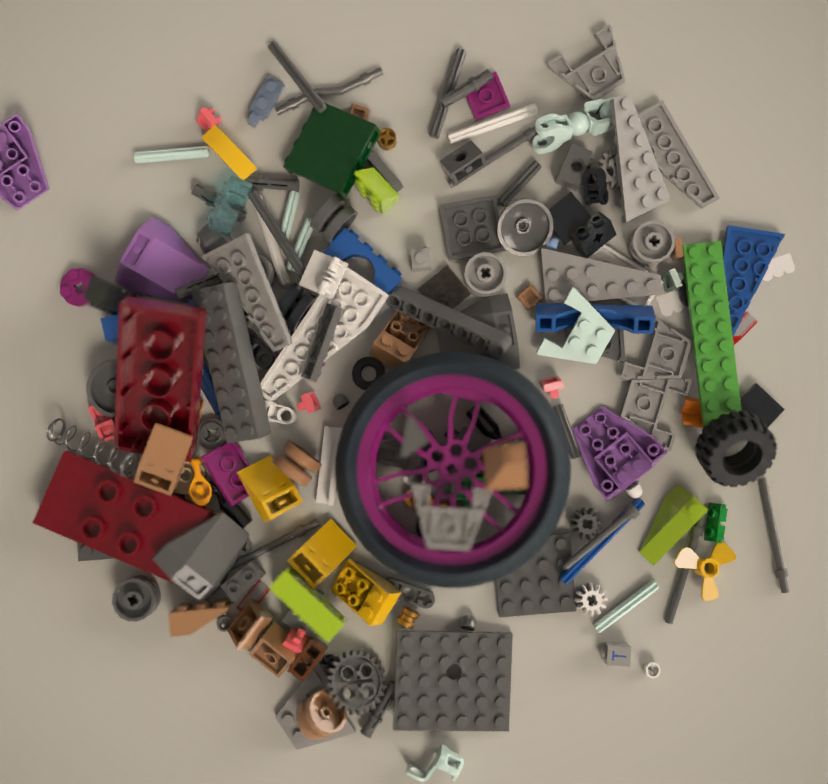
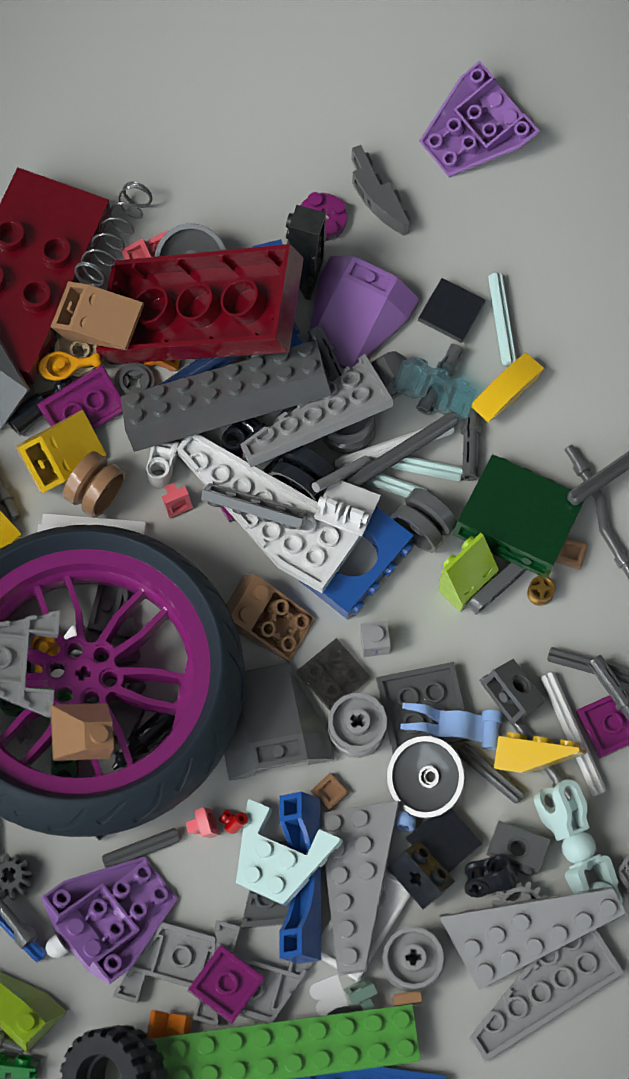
camera: 85 degrees right, 15 degrees down
(68, 241) = (378, 197): none -> dark grey slope
(163, 191) = (451, 310): none -> black tile
(206, 119) = (550, 358): coral tile -> none
(265, 100) = (582, 432): sand blue hinge -> none
(297, 279) = (340, 473): none -> light grey bar
(340, 401) = (178, 541): dark grey hinge -> none
(360, 365) = (226, 563): black tyre -> none
(413, 438) = (122, 610): dark grey slope -> none
(449, 321) = (288, 674): dark grey beam -> none
(486, 202) = (459, 724): none -> light blue flag
(513, 151) = (526, 756): none -> yellow slope
(550, 366) = (232, 822): none -> red arm
(666, 371) = (226, 984): none -> magenta tile

